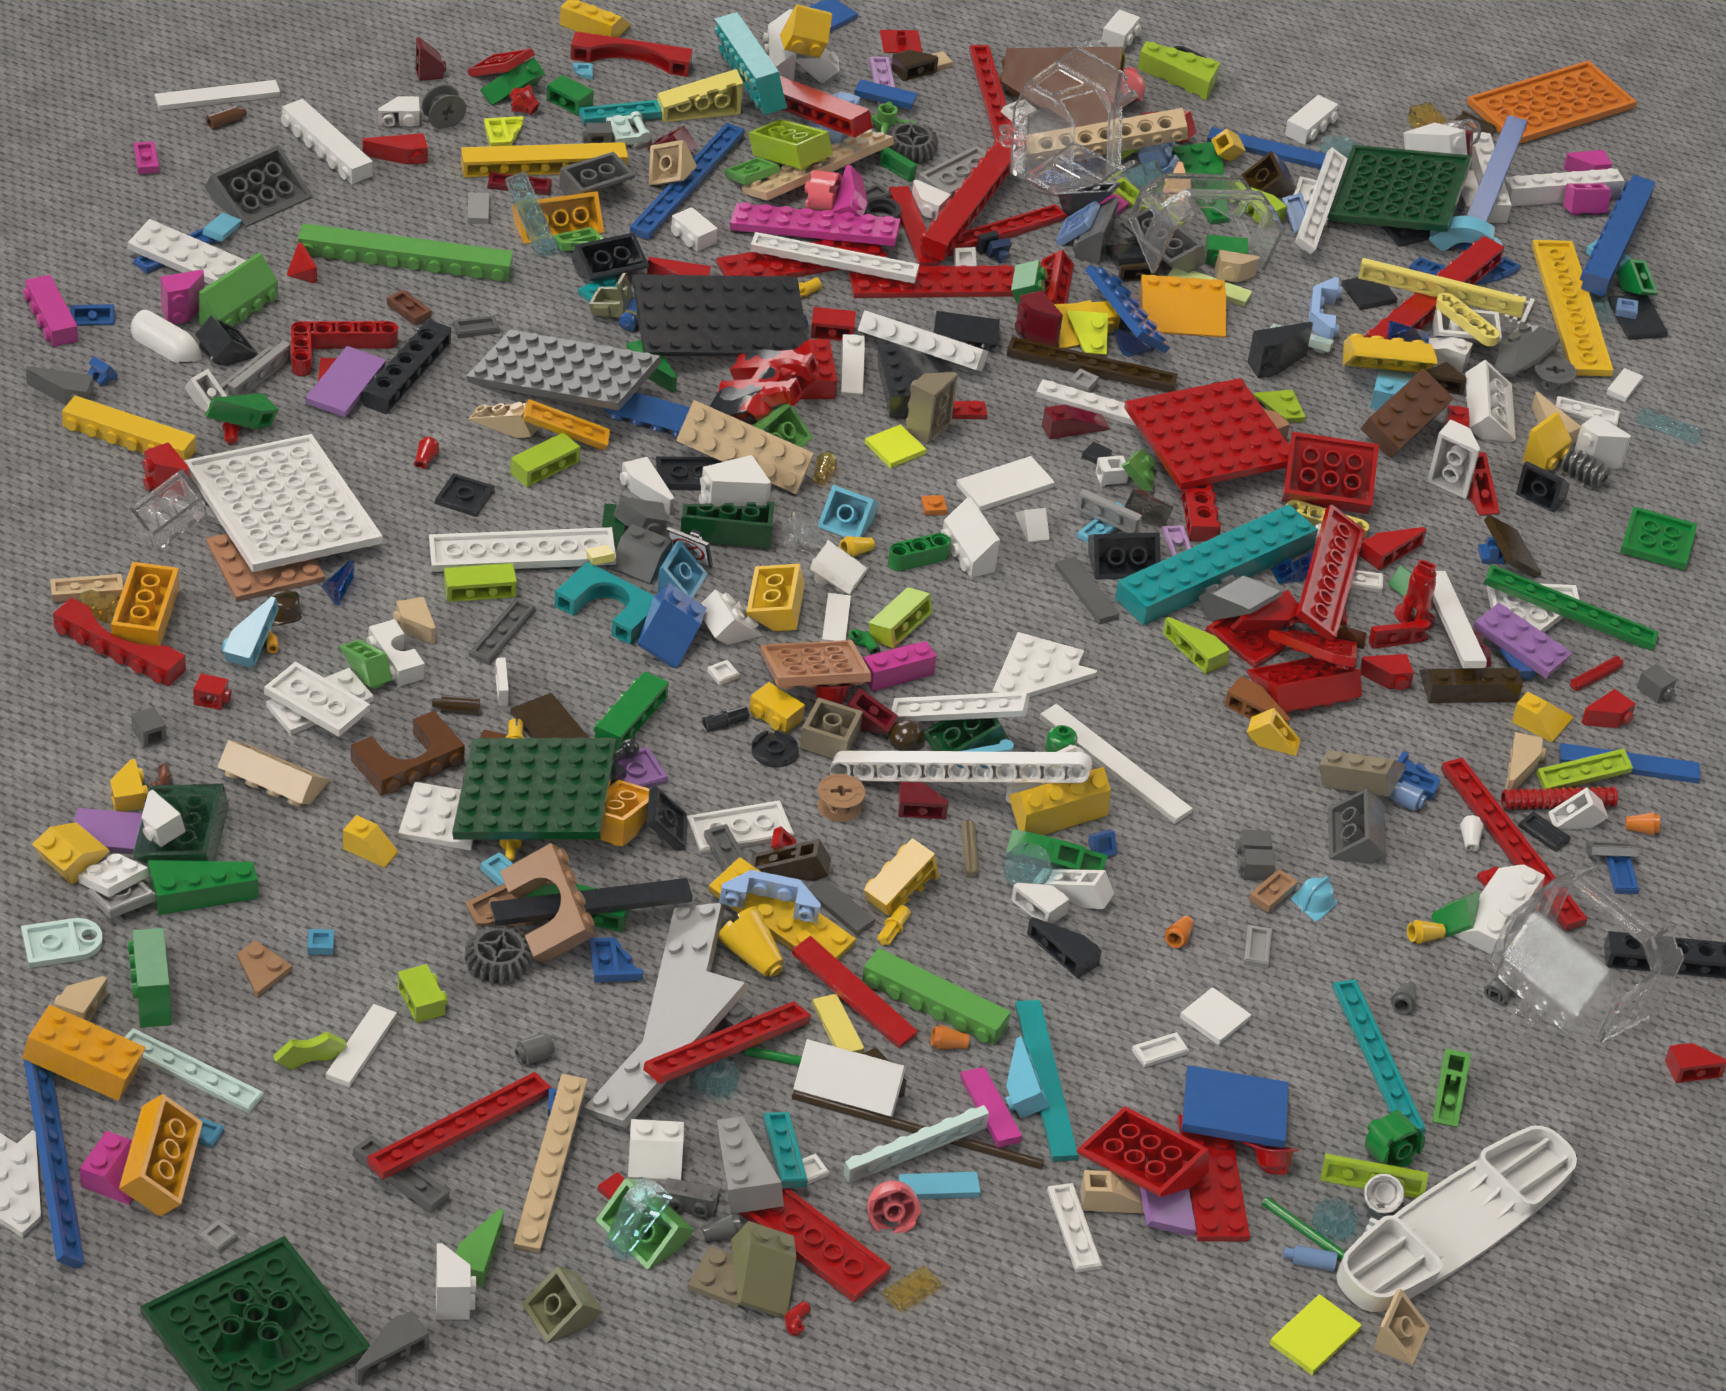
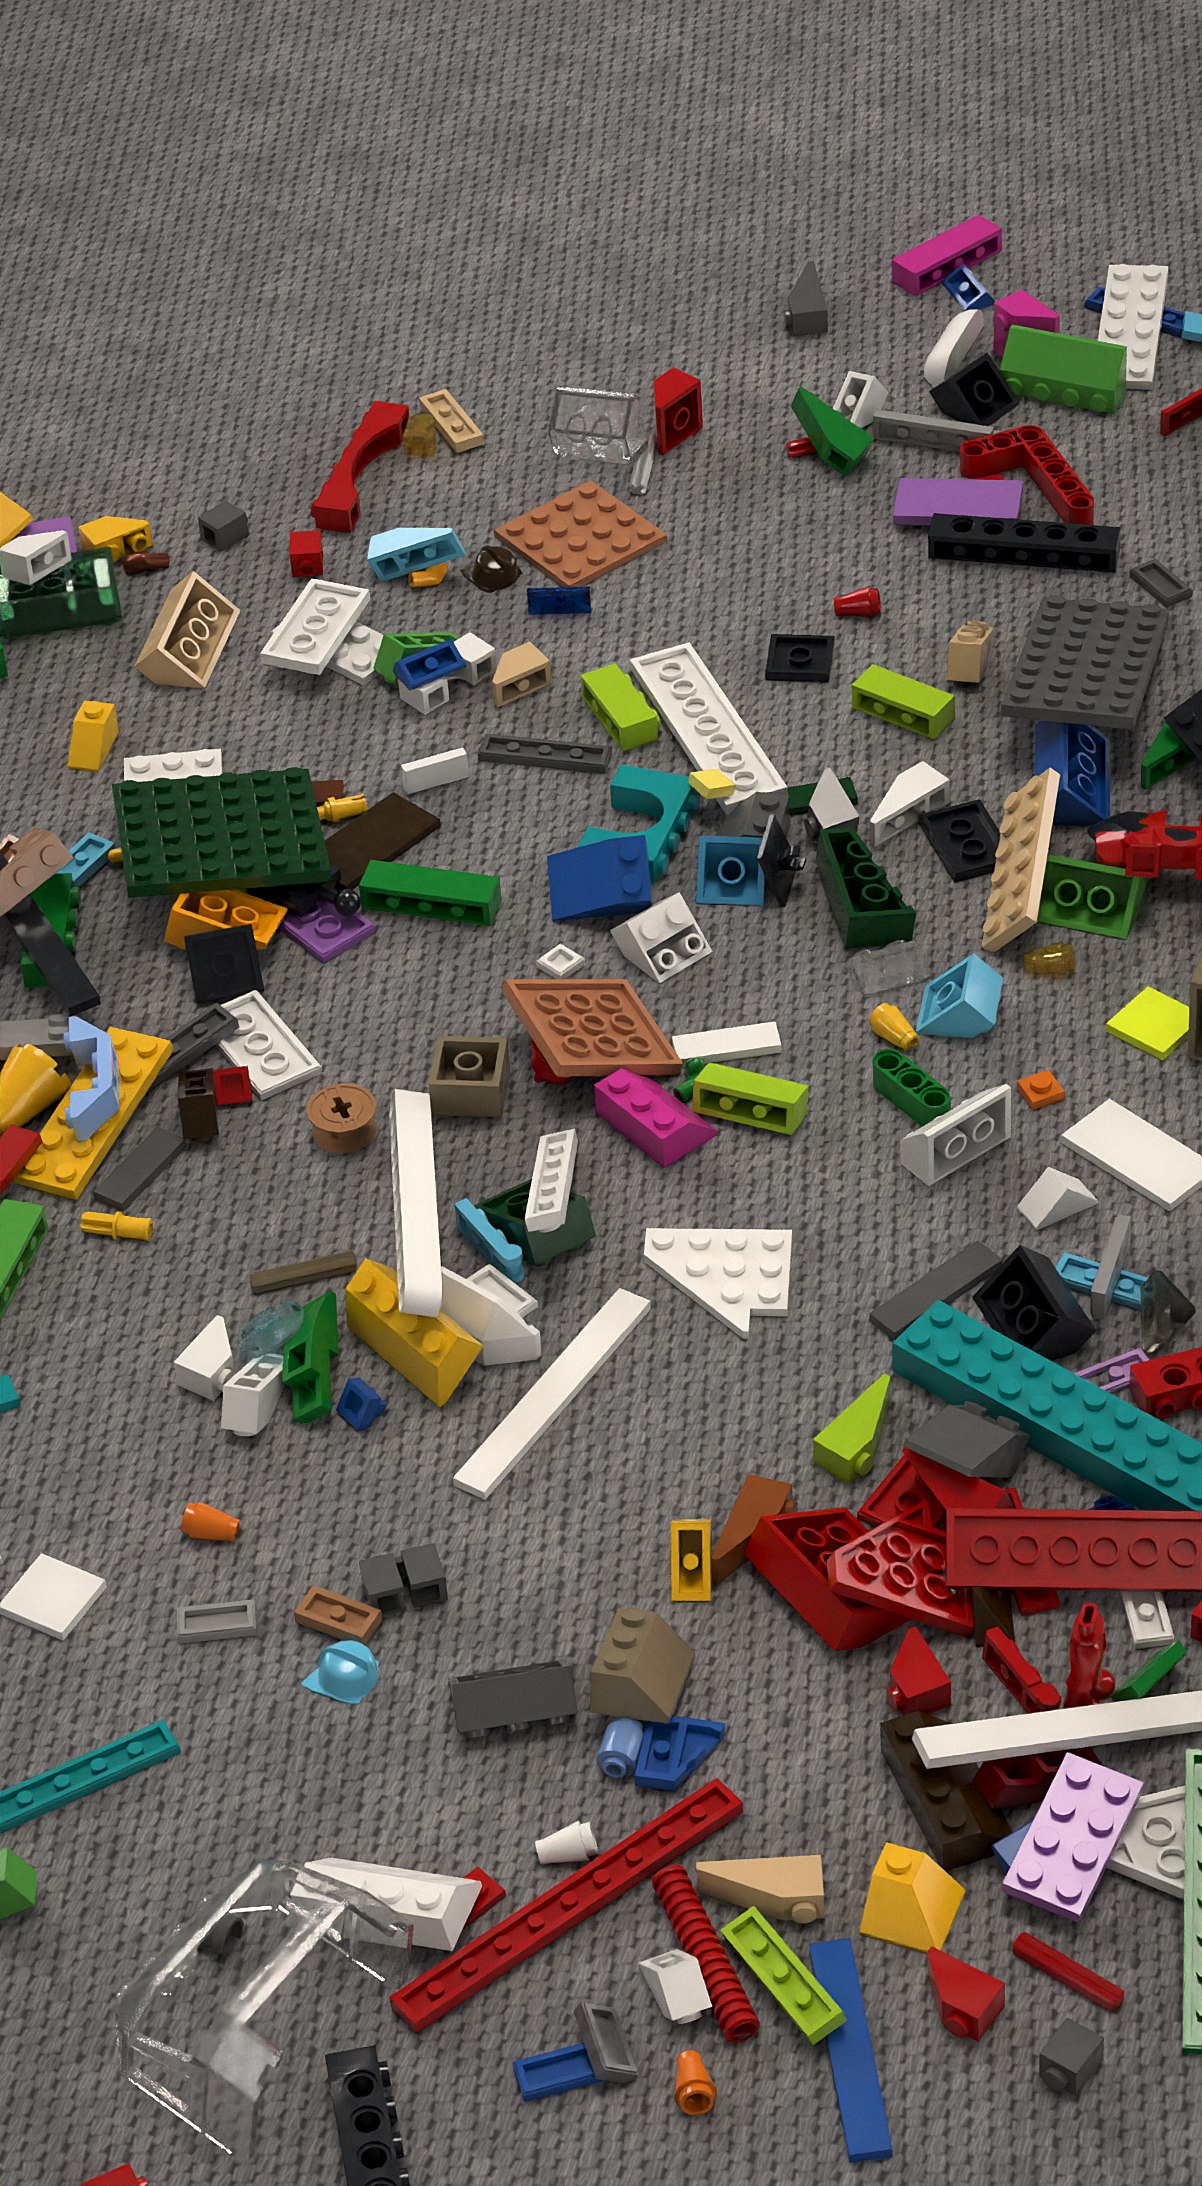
camera: 85 degrees right, 0 degrees up
(103, 370) = (858, 322): blue tile -> none
(124, 428) = (751, 371): yellow brick -> none
(146, 603) = (427, 463): light orange brick -> none
(283, 502) = (679, 512): white plate -> none
(391, 773) = (228, 711): reddish brown arch -> none
(400, 651) = (429, 665): none -> blue slope
(409, 307) = (1156, 516): copper plate -> none
(457, 704) = (380, 749): dark brown cylinder -> none
(572, 426) = (972, 694): light orange plate -> none
(725, 718) = (462, 981): black axle -> none
(735, 483) = (933, 873): white slope -> none
(774, 749) = (419, 1052): black tile -> none
(776, 596) = (724, 968): yellow slope -> none
(776, 708) = (495, 1019): yellow brick -> none
(837, 568) = (834, 1018): white slope -> none
(875, 715) = (520, 1102): dark red slope -> none
(901, 877) = (200, 1204): yellow wedge -> none
(906, 735) = (509, 1161): dark brown hair -> none
(920, 801) = (369, 1195): dark red slope -> none
(1060, 738) = (555, 1315): green head -> none
(1067, 947) = (124, 1407): black slope -> none
(1405, 998) = (156, 1811): dark grey cone -> none
(1424, 931) = (312, 1814): yellow cone -> none
(1457, 914) = (364, 1844): green slope -> none
(1544, 831) = (621, 1947): black tile -> none

